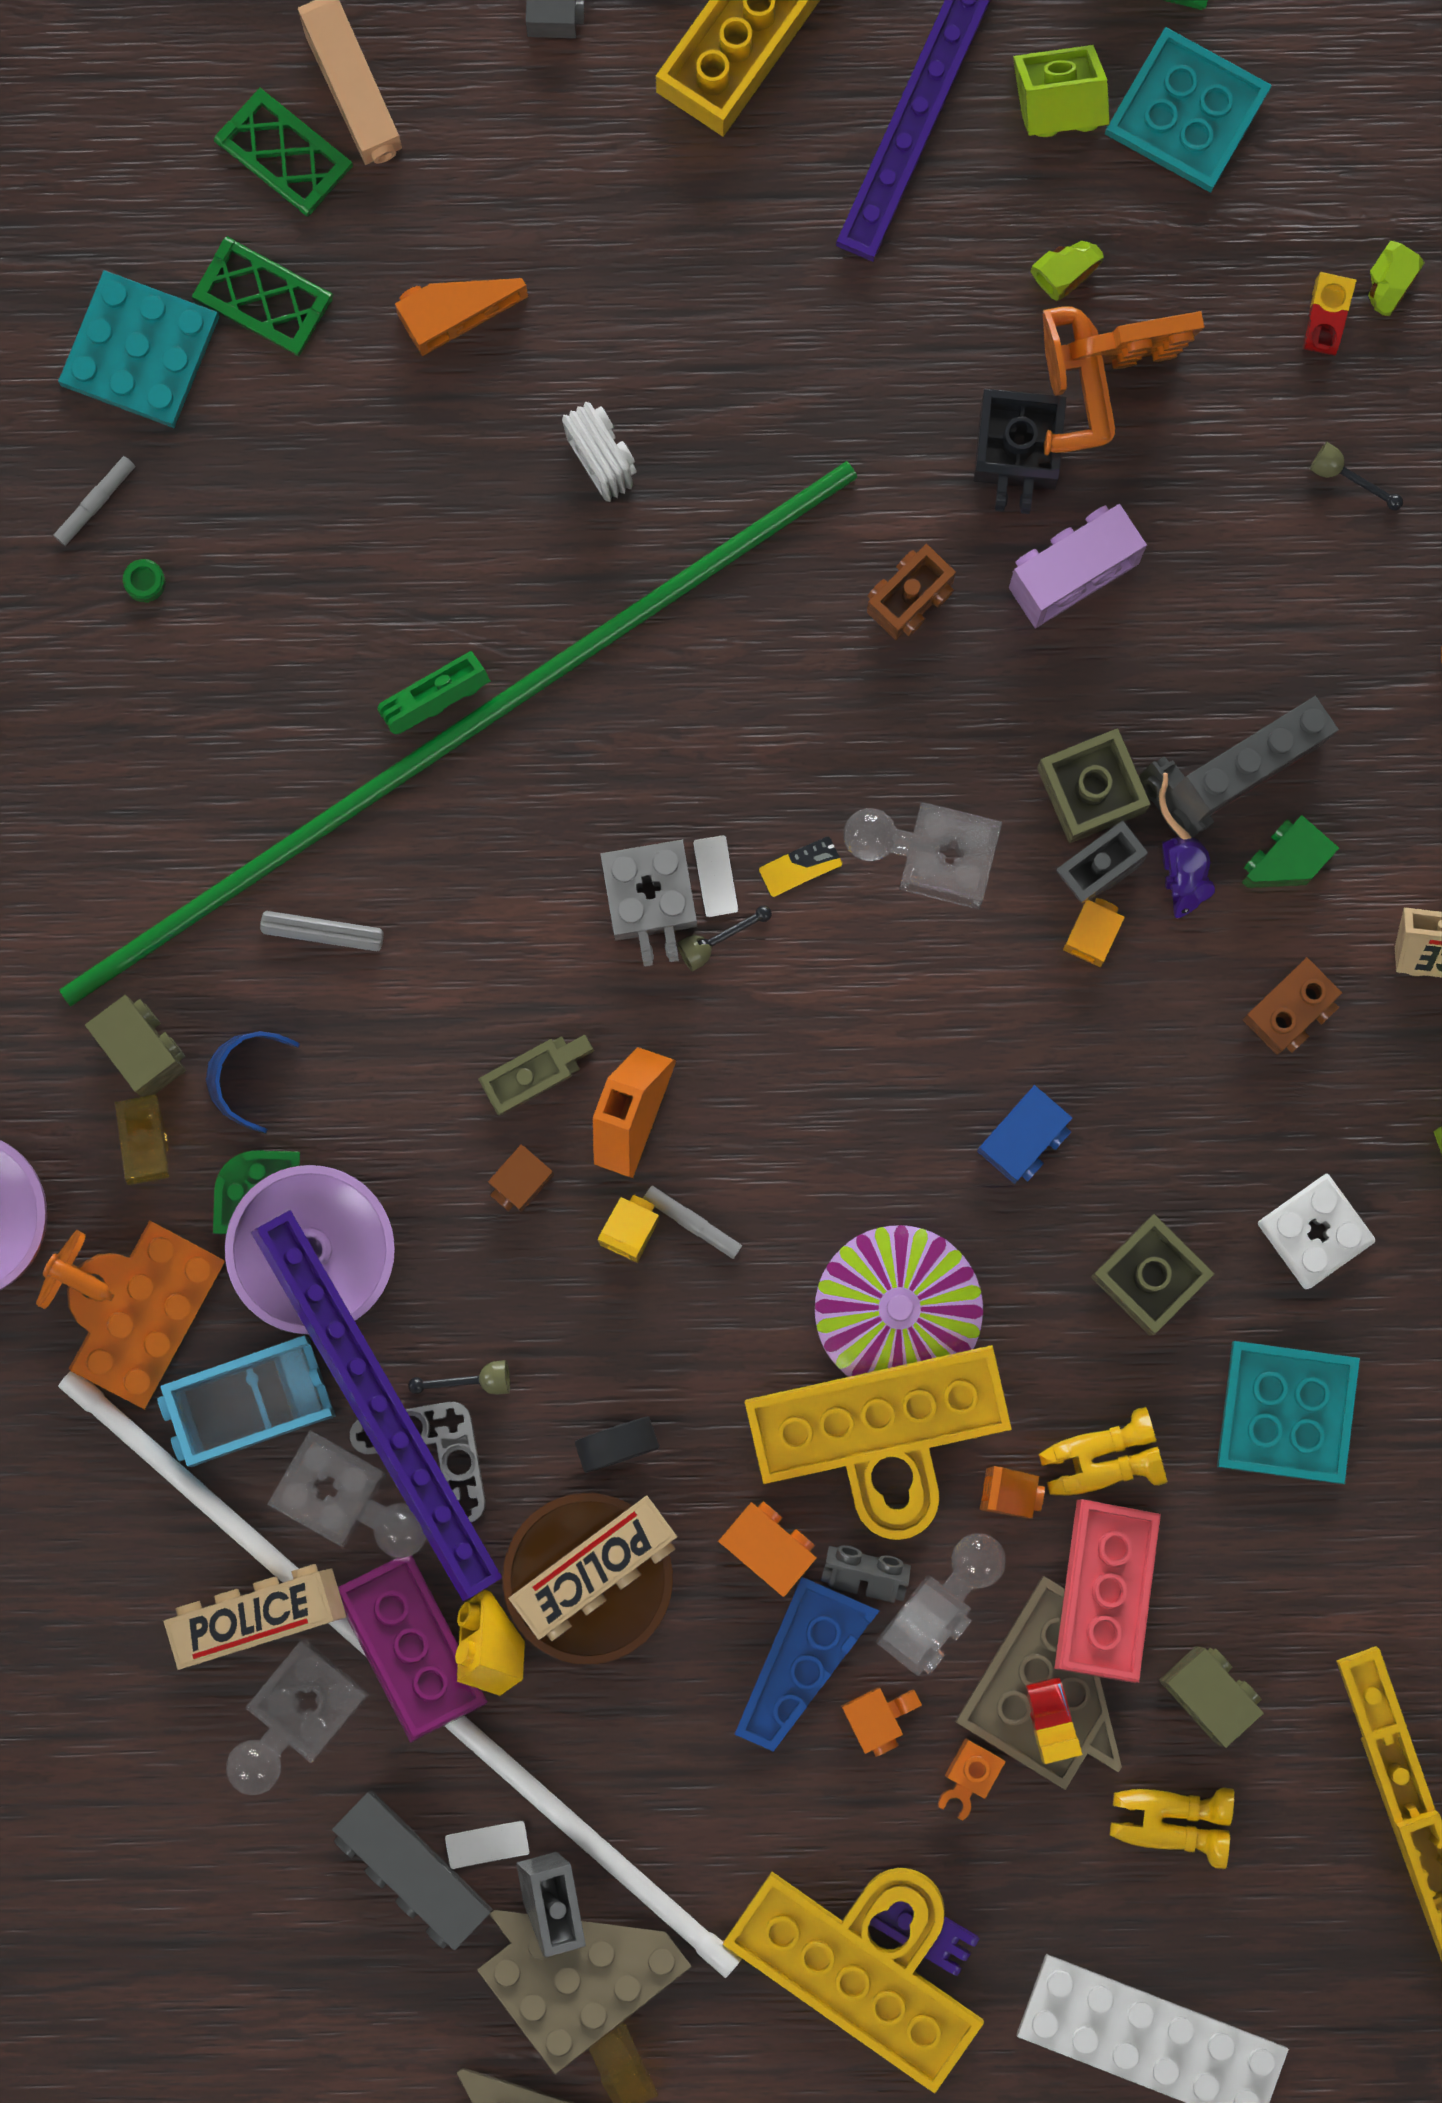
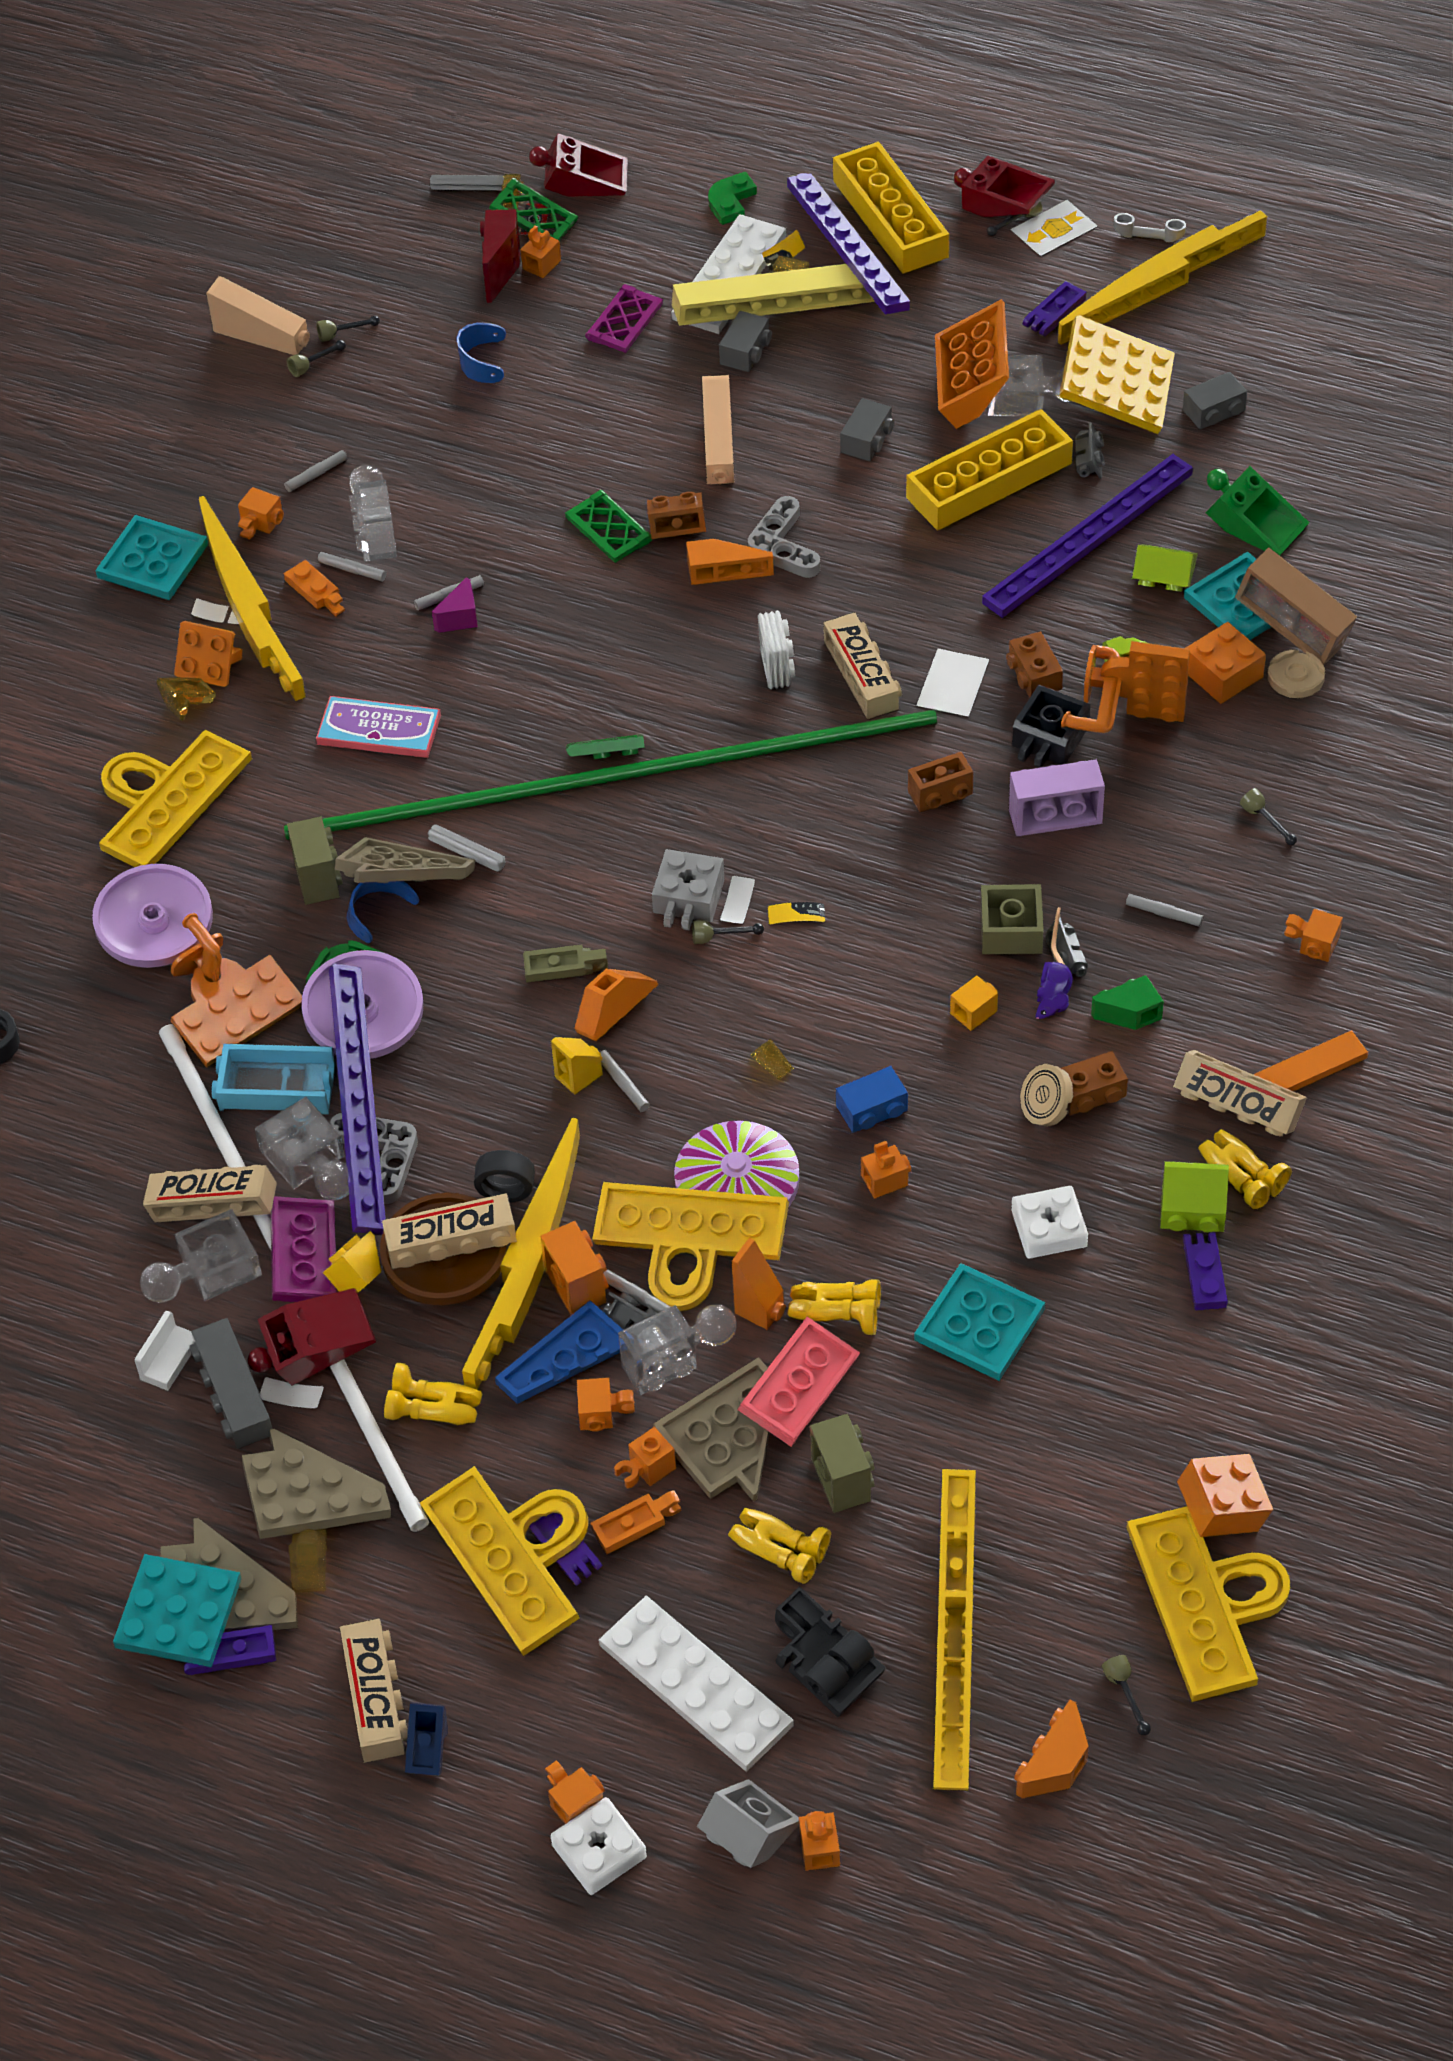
camera: 25 degrees right, 30 degrees down
(106, 771) = (378, 726): none -> tile
(125, 531) = (456, 610): none -> magenta slope
(138, 349) = (518, 529): teal plate -> none
(142, 1139) = (290, 911): clear yellow slope -> none
(144, 580) = (456, 640): green tile -> none
(252, 1007) = (386, 861): none -> dark tan wing
(285, 120) = (674, 483): green window -> none
(309, 1857) = (164, 1353): none -> white panel
(357, 255) = (676, 515): none -> dark orange brick
(487, 1773) = (321, 1331): none -> dark red slope
(493, 1379) = (444, 1120): hinge -> none
(500, 234) = (772, 540): none -> light grey beam
(519, 1180) = (521, 1015): dark orange brick -> none
(551, 1903) = (315, 1429): dark grey slope -> none
(683, 1806) = (451, 1402): none -> yellow piece
(696, 1543) = (524, 1260): none -> yellow slope
(720, 423) = (861, 665): none -> tan brick
(849, 397) = (952, 682): none -> white sticker
(851, 1537) = (635, 1292): none -> light grey piece
(867, 1114) = (772, 1059): none -> clear yellow piece
(873, 835) = (891, 929): clear brick -> none
(956, 340) = (1034, 663): none -> dark orange brick
(988, 1862) = (634, 1520): none -> orange plate
(1052, 1721) = (719, 1440): leg -> none
(1086, 1237) = (885, 1170): none -> orange brick
(1103, 863) = (999, 960): dark grey slope -> none
(1152, 1275) = (920, 1202): olive brick -> none
(1205, 238) = (1225, 662): none -> orange brick
(1245, 1051) = (1046, 1095): none -> tan tile
(1254, 760) = (1127, 934): dark grey brick -> none
(1274, 681) = (1164, 910): none -> light grey piece
(1278, 122) = (1295, 606): none -> medium nougat brick
(1293, 1955) = (825, 1656): none -> black plate
(1302, 213) = (1296, 674): none -> tan tile
(1328, 313) = (1289, 723): leg -> none
(1393, 276) = (1342, 719): lime rock -> none

